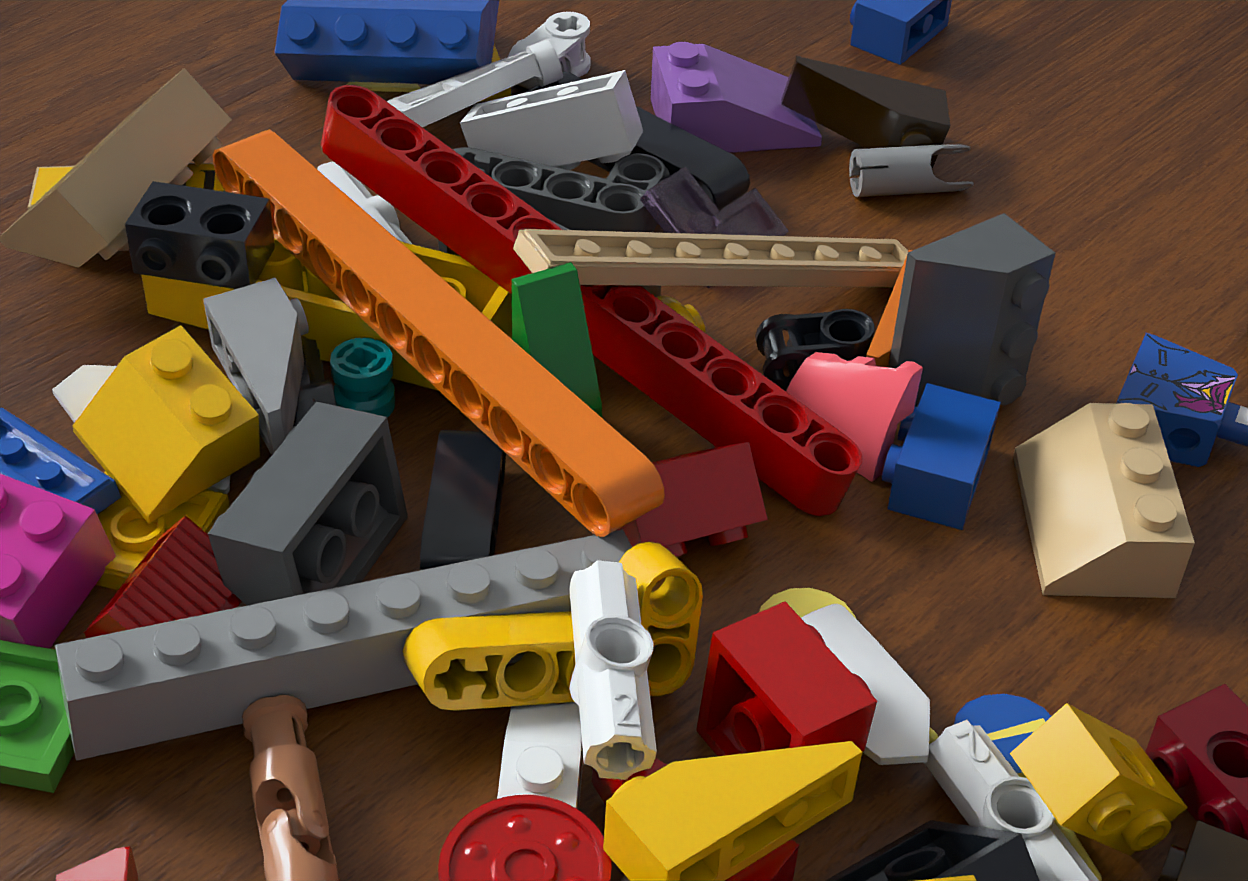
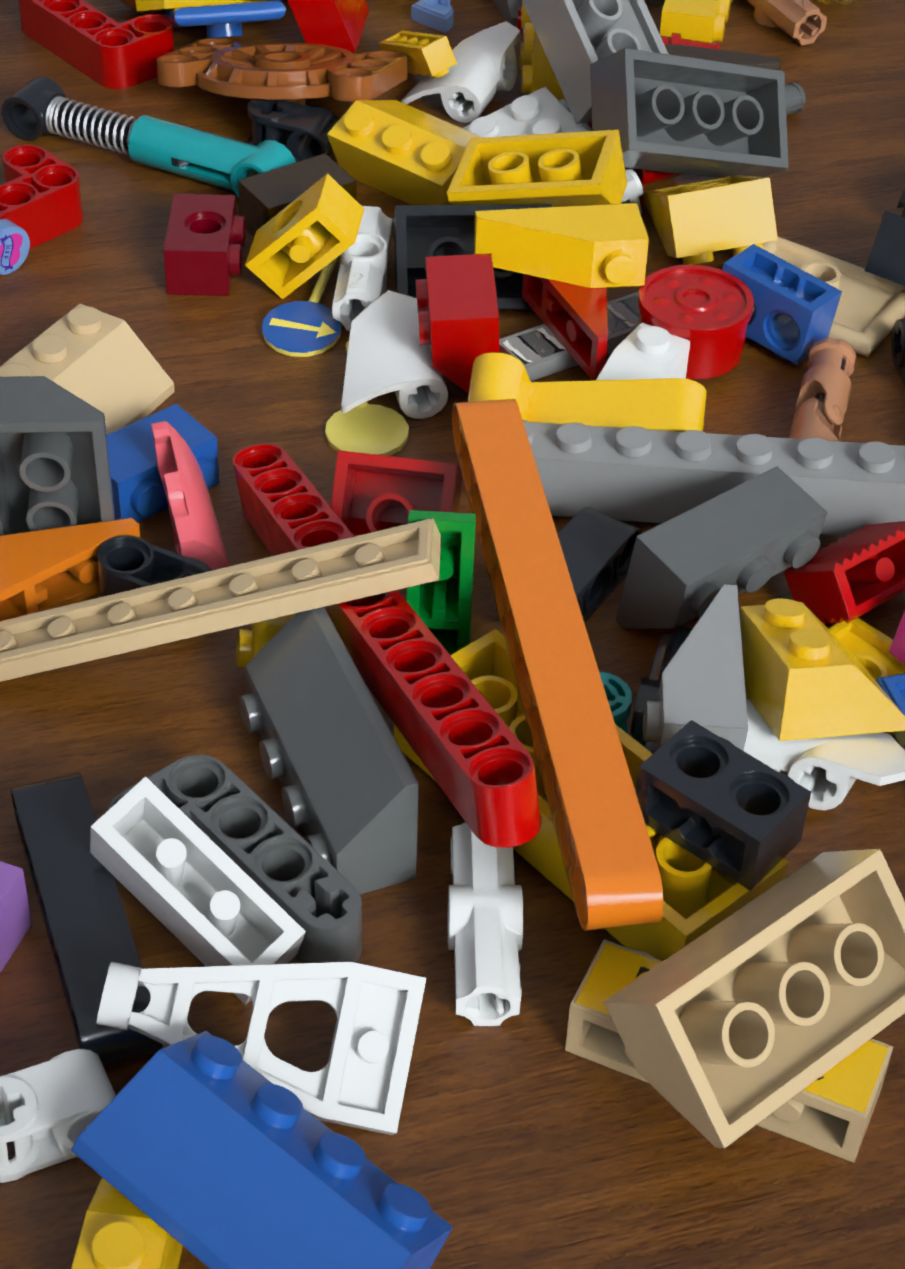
camera: 150 degrees left, 0 degrees up
(611, 671) = (579, 331): white piece -> none
(684, 207) = (125, 741): clear purple tile -> none

